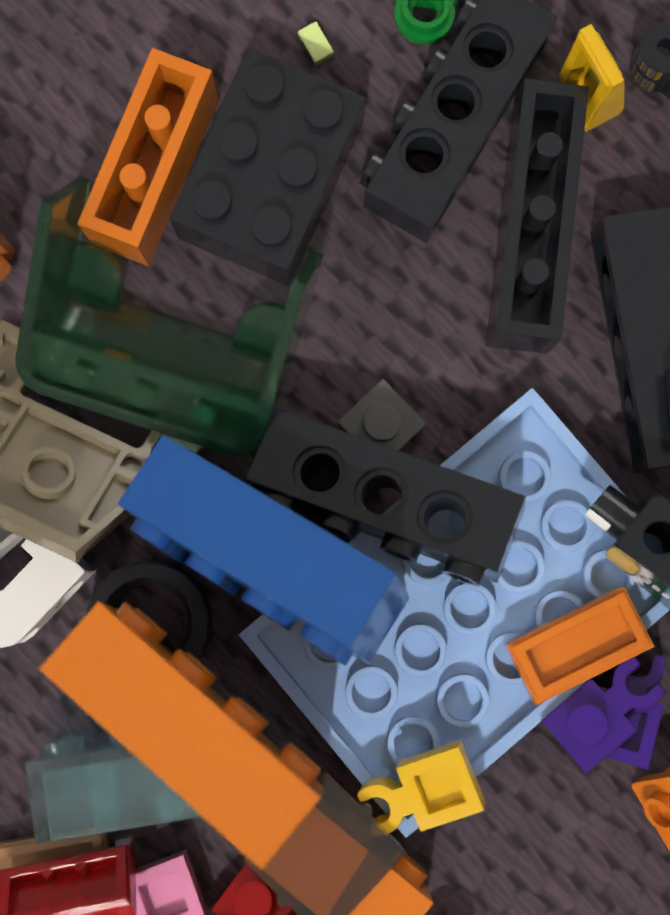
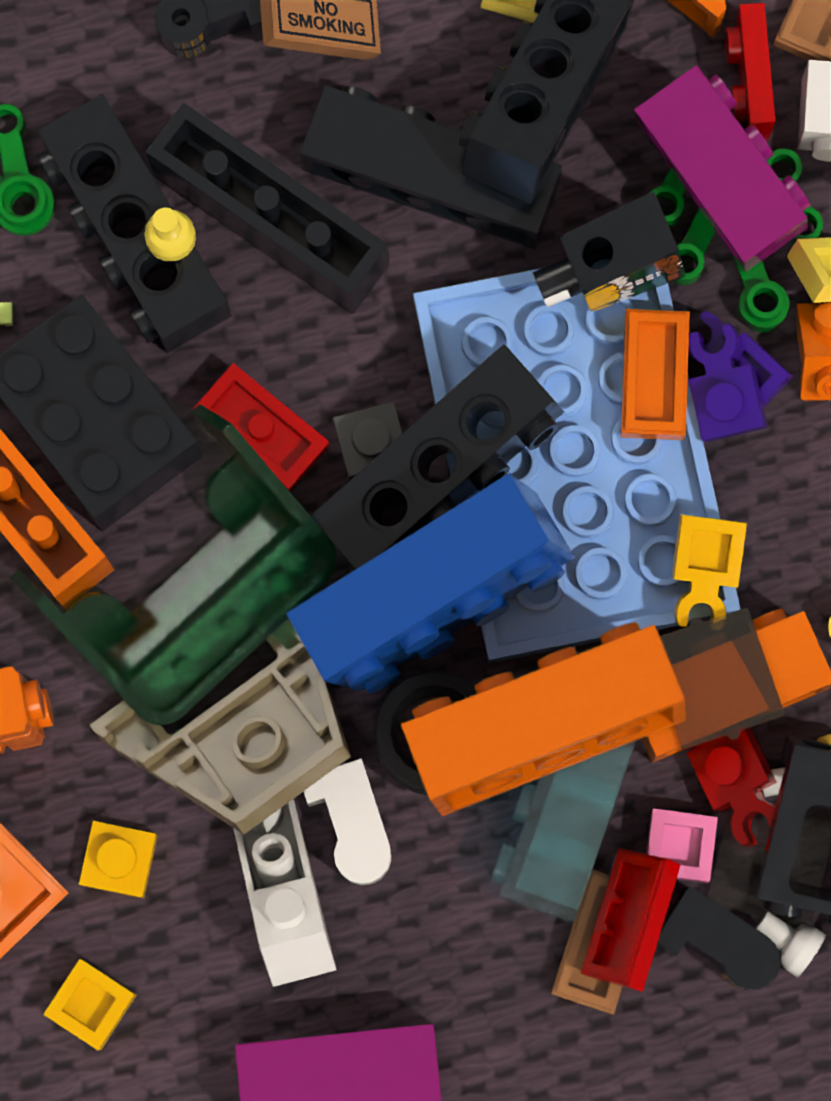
camera: 55 degrees left, 5 degrees down
(339, 322) = (269, 426): none -> red plate
(462, 143) = (170, 234): none -> light yellow piece
(593, 66) = (166, 91): yellow slope -> none

